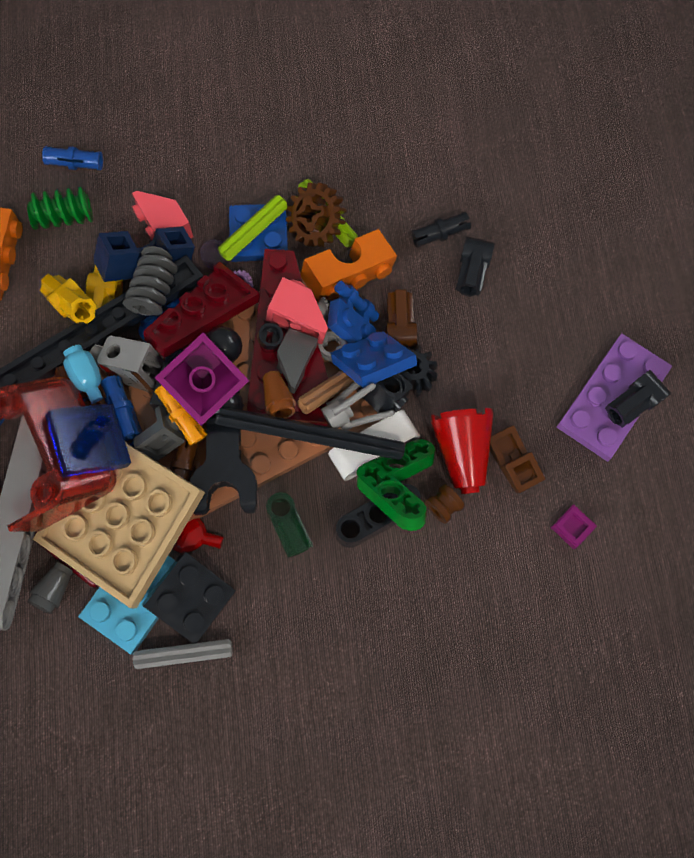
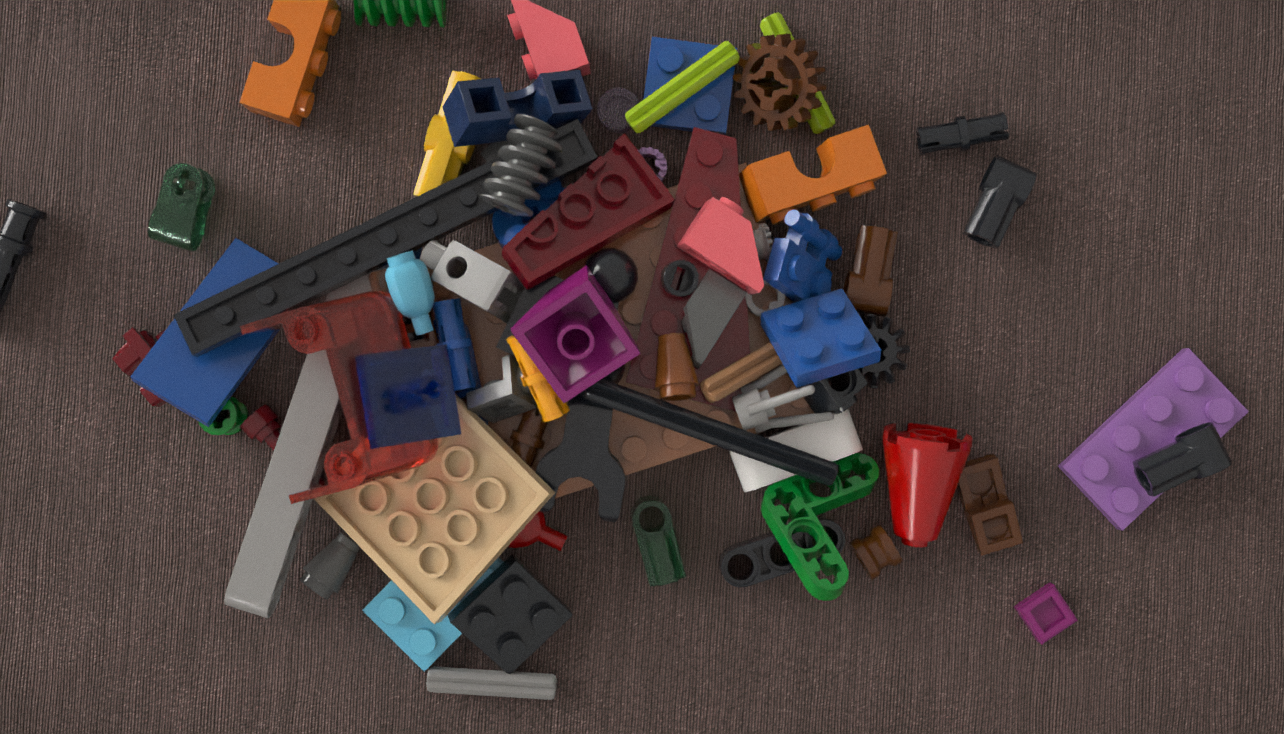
camera: 15 degrees right, 15 degrees up
(68, 298) = (398, 160): yellow piece -> none

